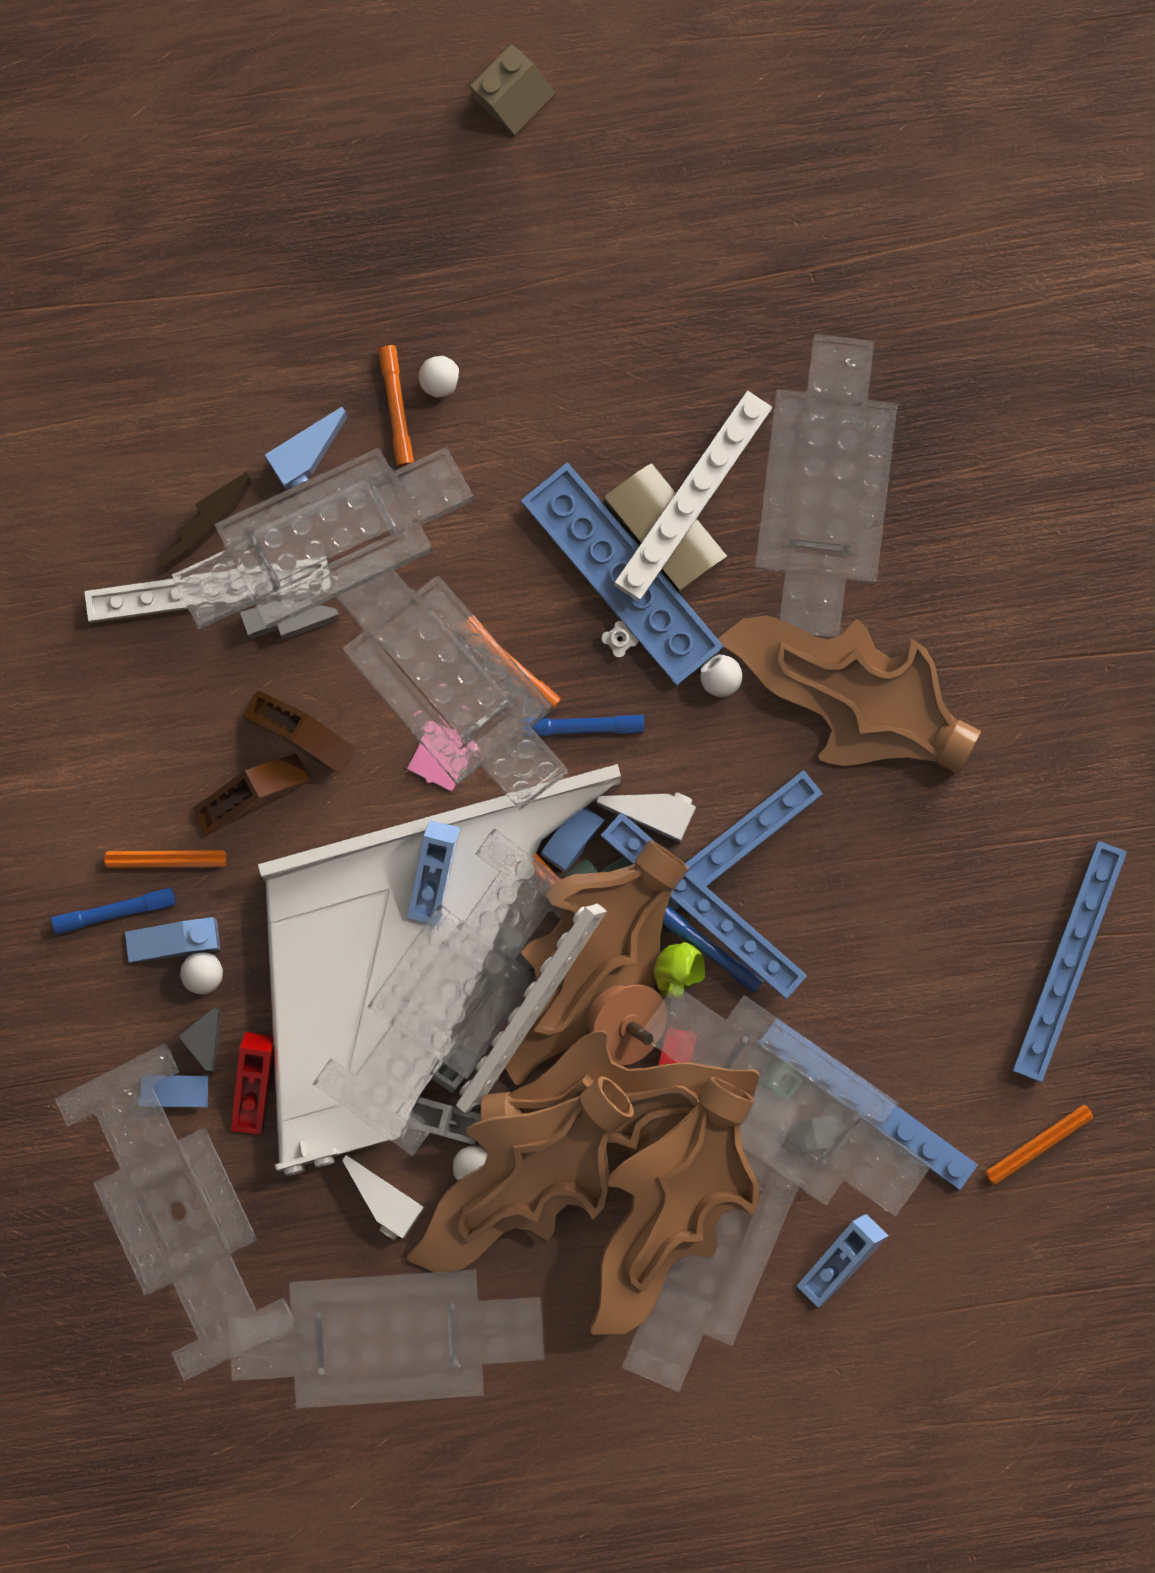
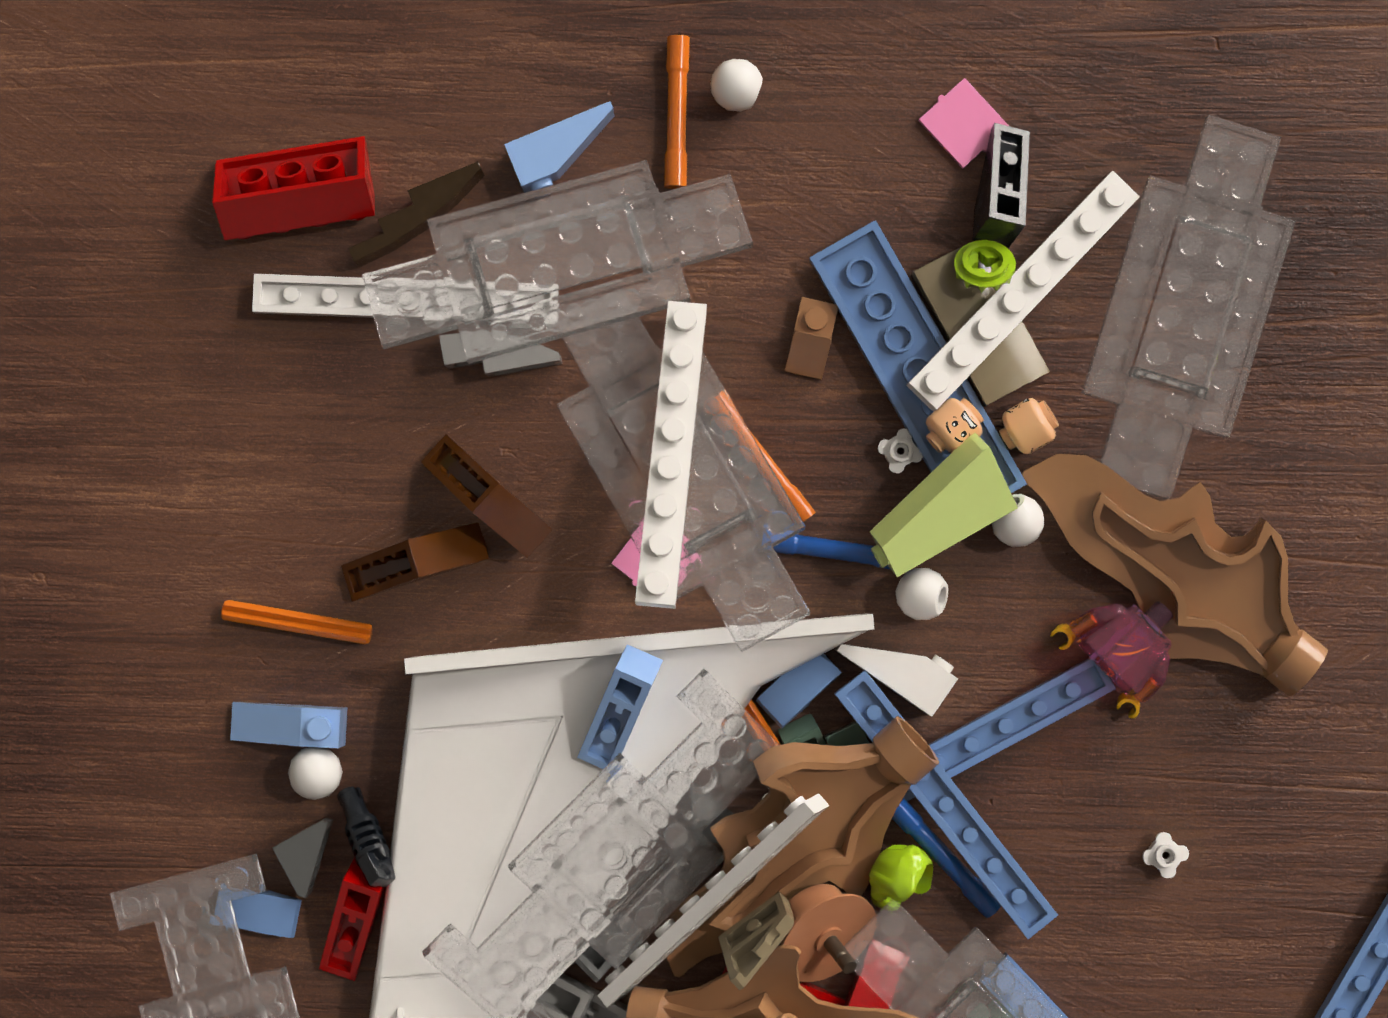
camera: 10 degrees right, 5 degrees up
(80, 919) = (178, 677): blue piece -> none
(104, 519) = (293, 188): none -> red slope
(251, 1015) = (366, 838): none -> black hinge
(438, 668) = (671, 455): none -> white plate
(534, 564) = (811, 338): none -> medium nougat slope
(571, 1031) = (755, 938): none -> dark tan wing
(624, 374) = (961, 122): none -> bright pink piece
(656, 610) = (953, 424): none -> light nougat head
(656, 746) = (922, 594): none -> white piece
(660, 674) = (944, 508): none -> yellowish green slope
(661, 472) = (991, 255): none -> lime gear
(662, 419) = (1003, 186): none -> black slope
(717, 601) = (1028, 426): none -> light nougat head
(822, 758) = (1125, 647): none -> clear pink torso
(879, 922) = (1163, 844): none -> white plate

